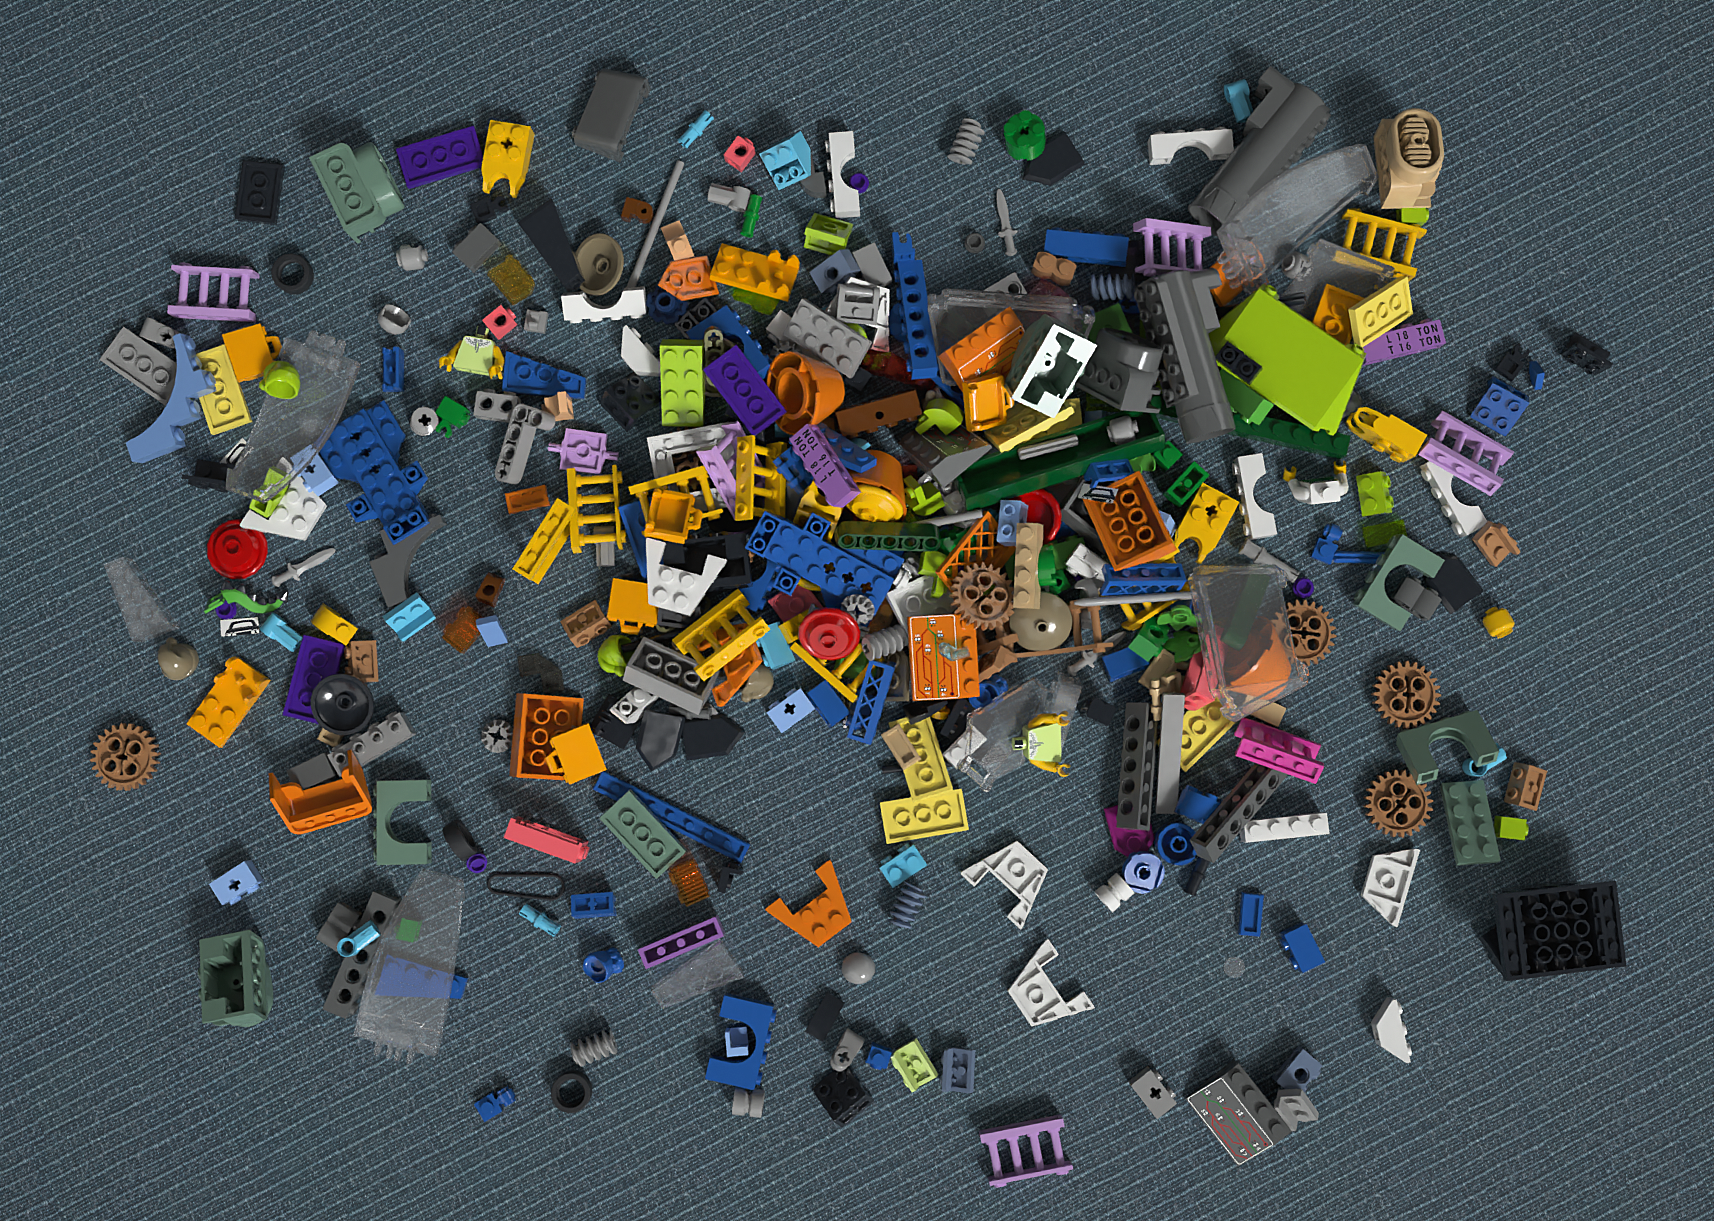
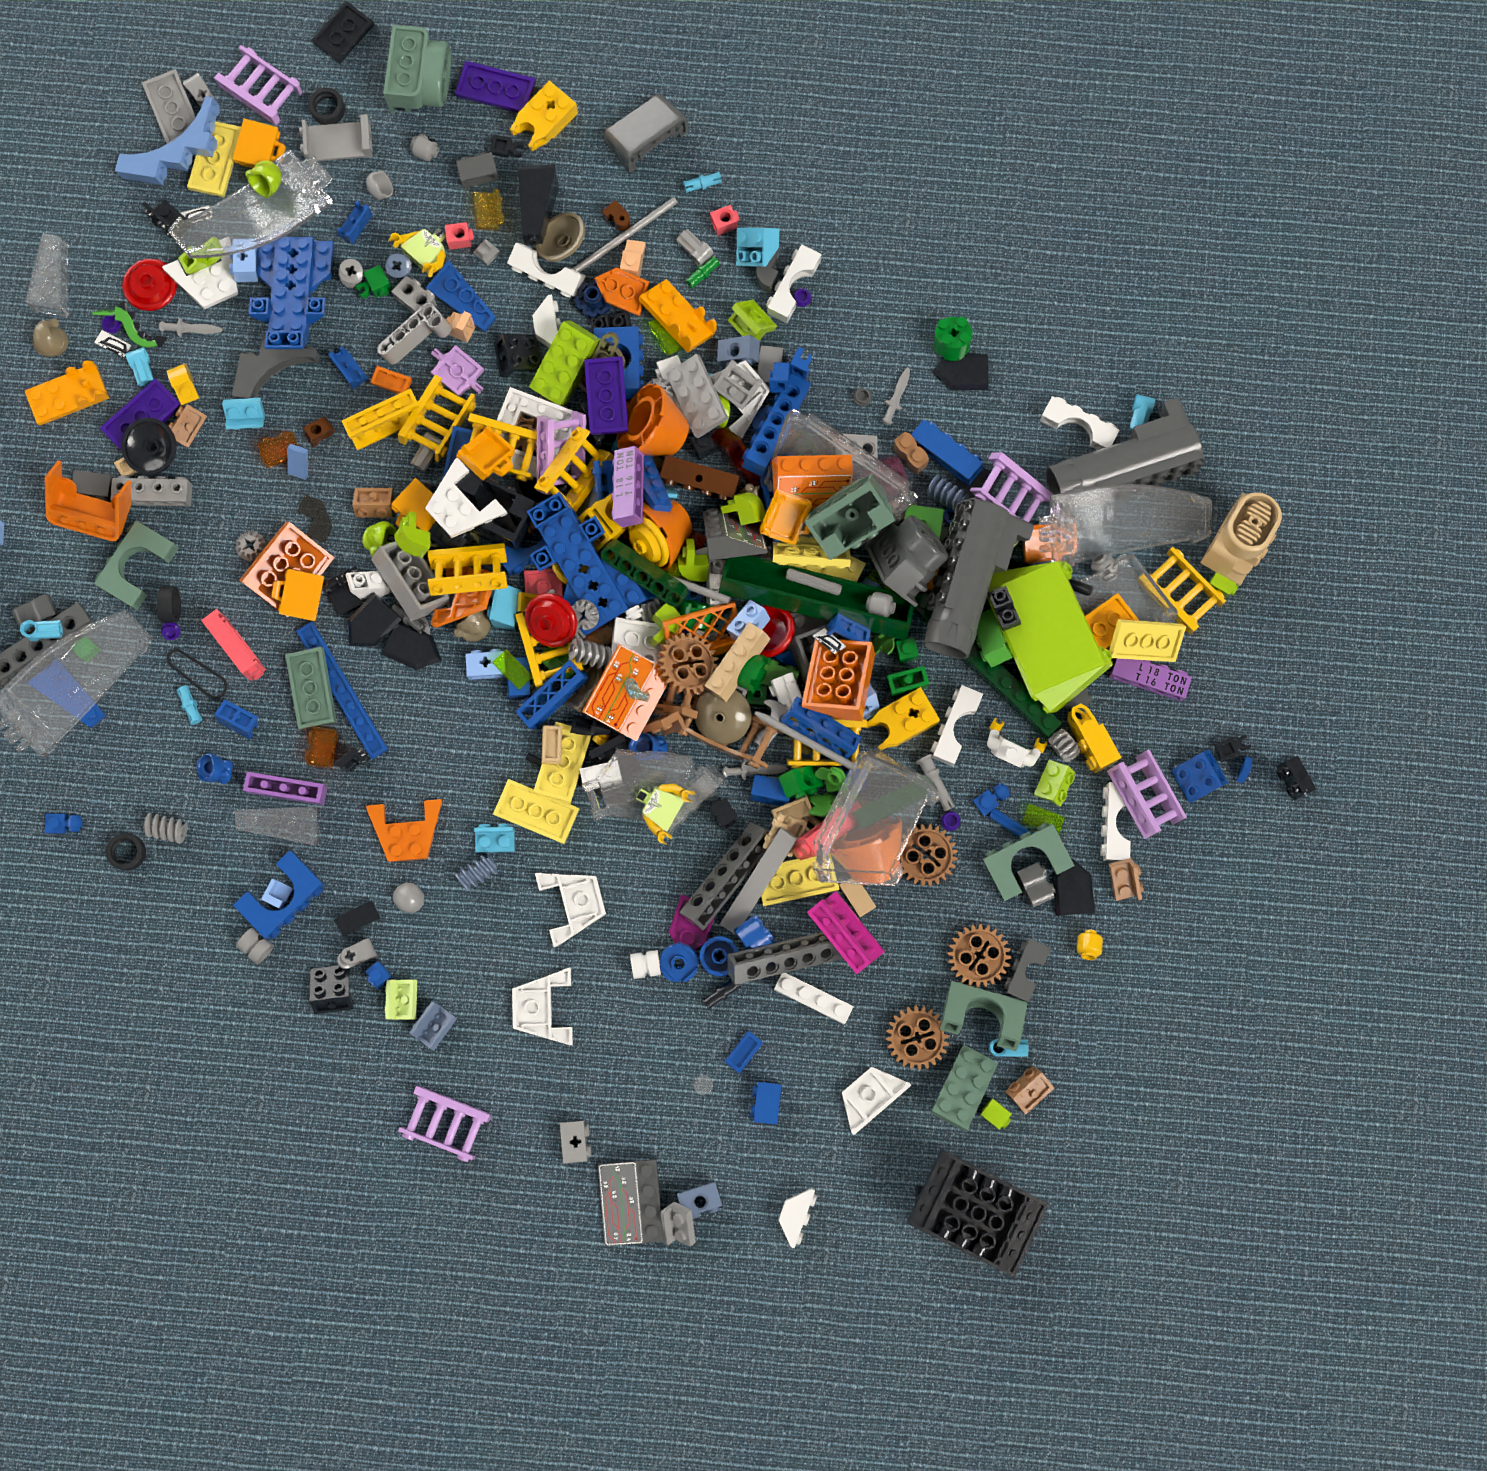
camera: 30 degrees right, 5 degrees down
(323, 300) = (337, 140): none -> light grey panel
(467, 393) = (405, 267): none -> sand blue piece
(478, 511) = (348, 367): none -> blue hinge
(646, 638) = (410, 539): none -> lime brick
(820, 700) = (512, 669): none -> clear neon green tile
(892, 273) = (780, 378): none -> blue brick
(966, 141) = (904, 315): light grey piece -> none
(1364, 454) = (1064, 745): none -> light grey gear
(1450, 664) = (1031, 953): none -> dark grey arch

